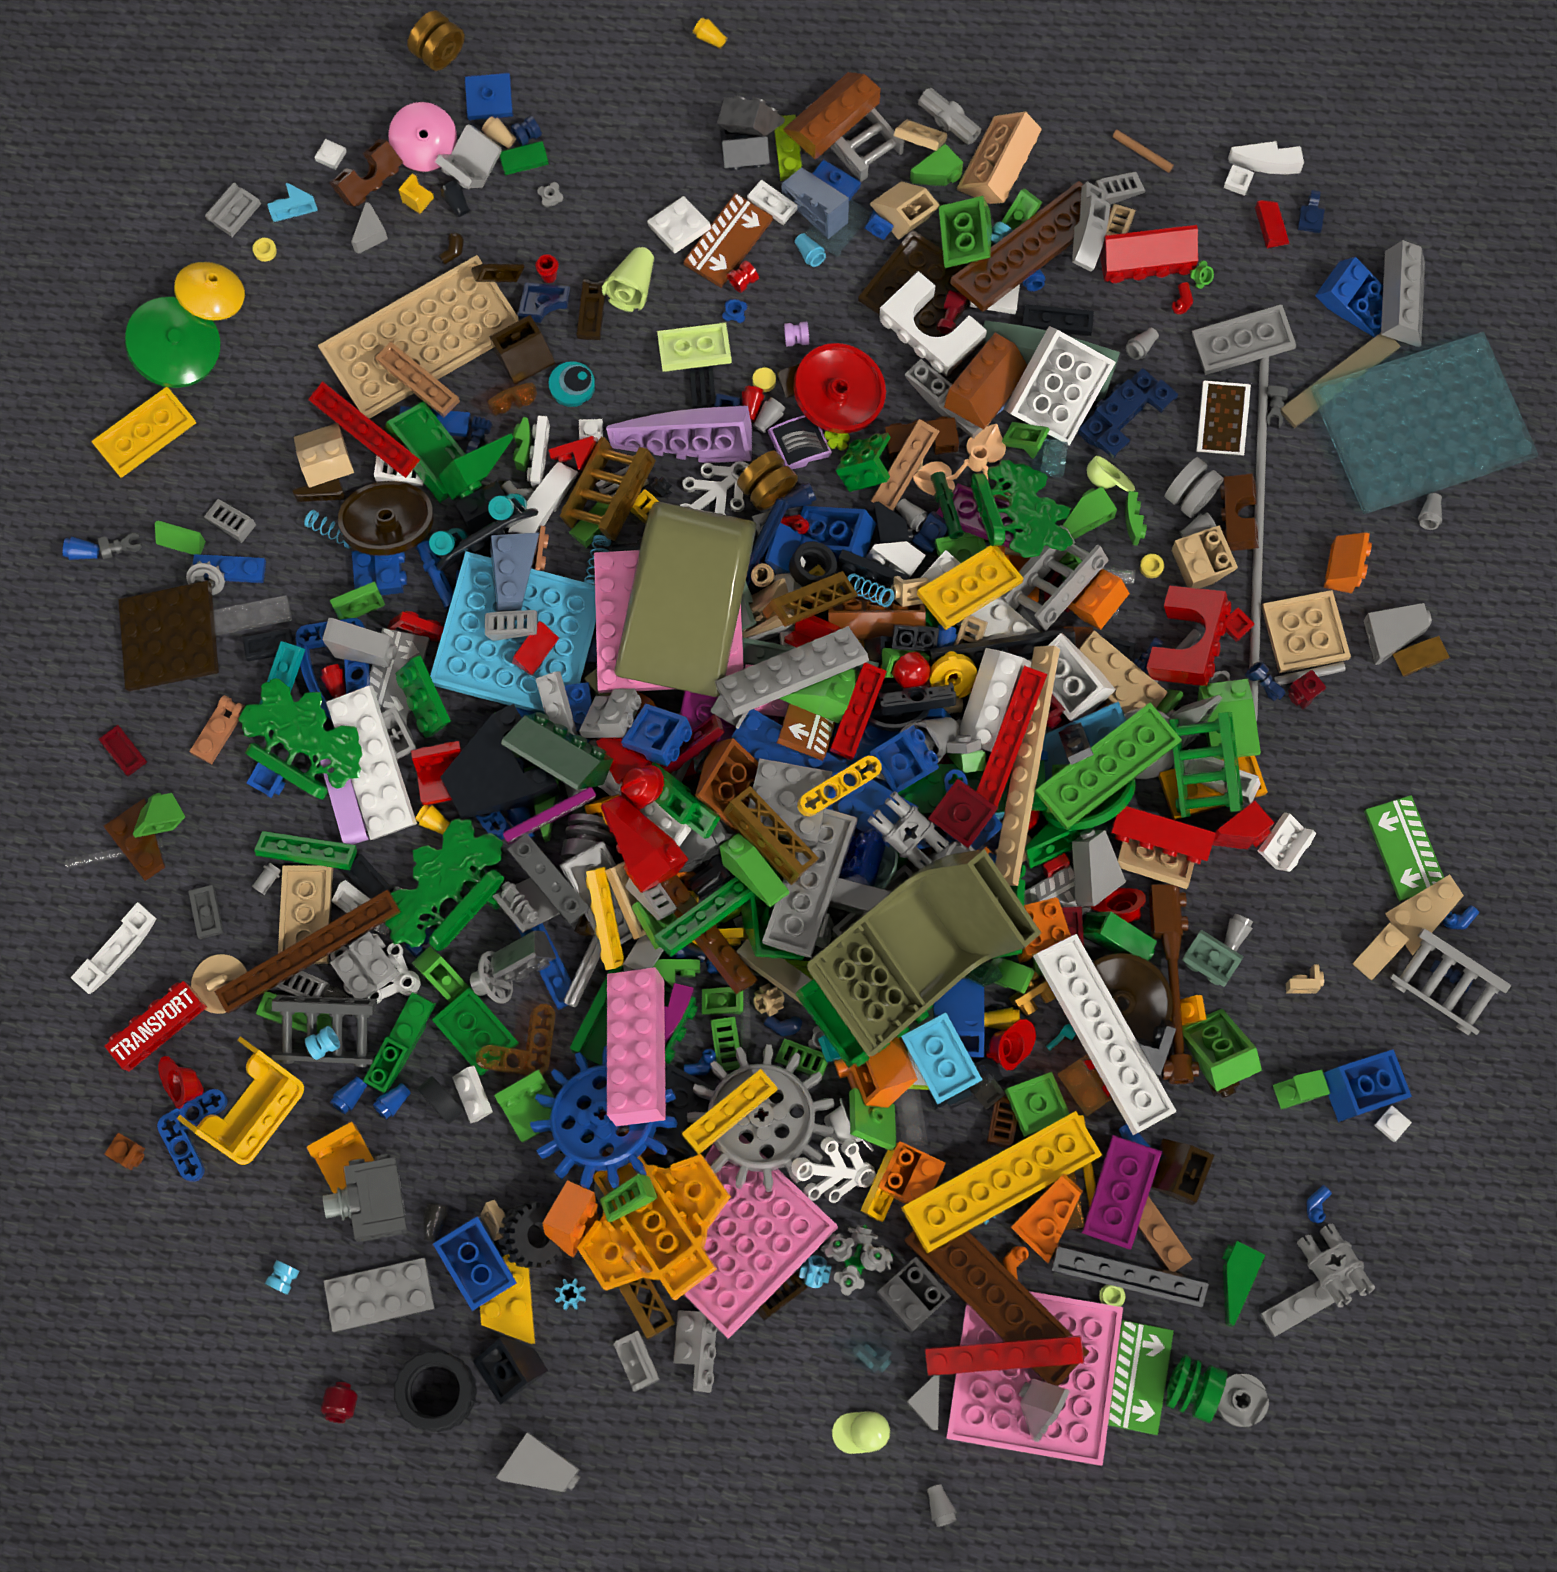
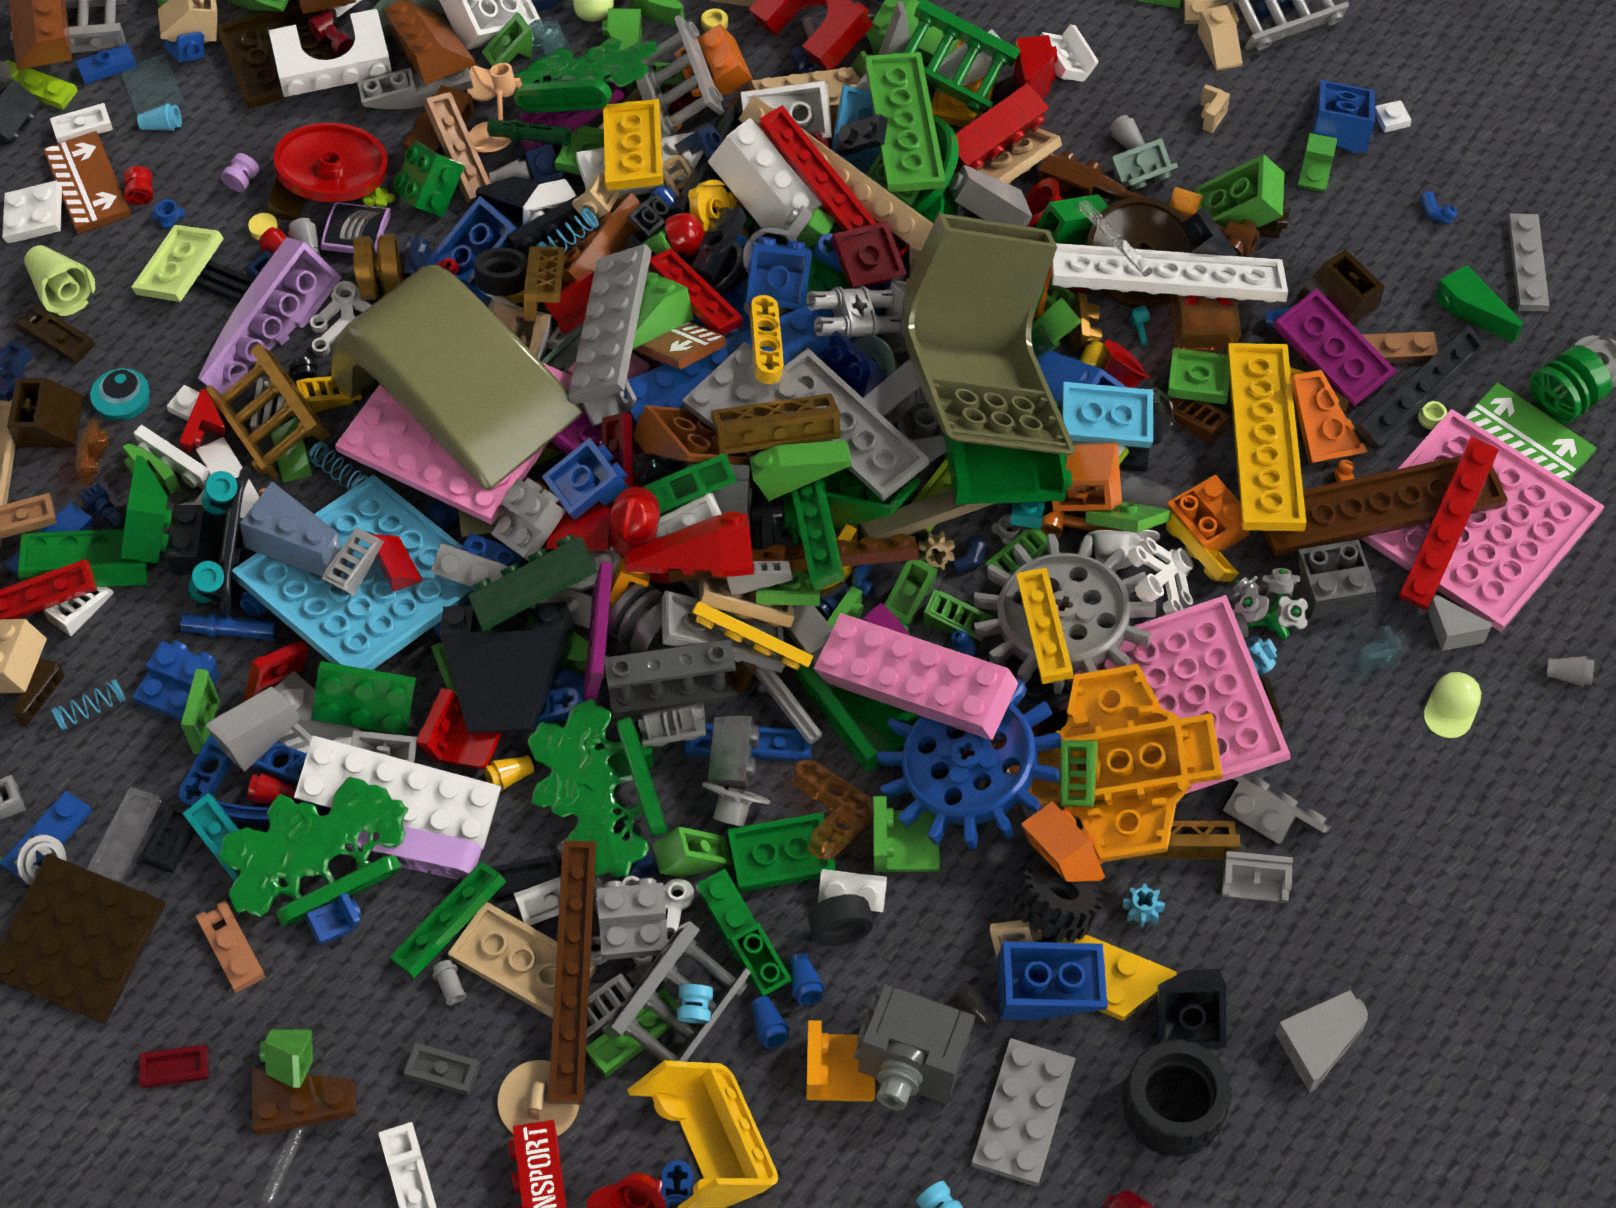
camera: 60 degrees left, 15 degrees down
(385, 518) = (125, 636): dark brown dish -> none
(817, 201) = (118, 80): sand blue wedge -> none
(1001, 634) = (702, 140): none -> dark blue bracket
(1041, 1406) = (1524, 505): light grey wedge -> none
(1106, 978) = (1115, 238): none -> clear bar
(1341, 1256) = (1508, 217): light grey pin -> none

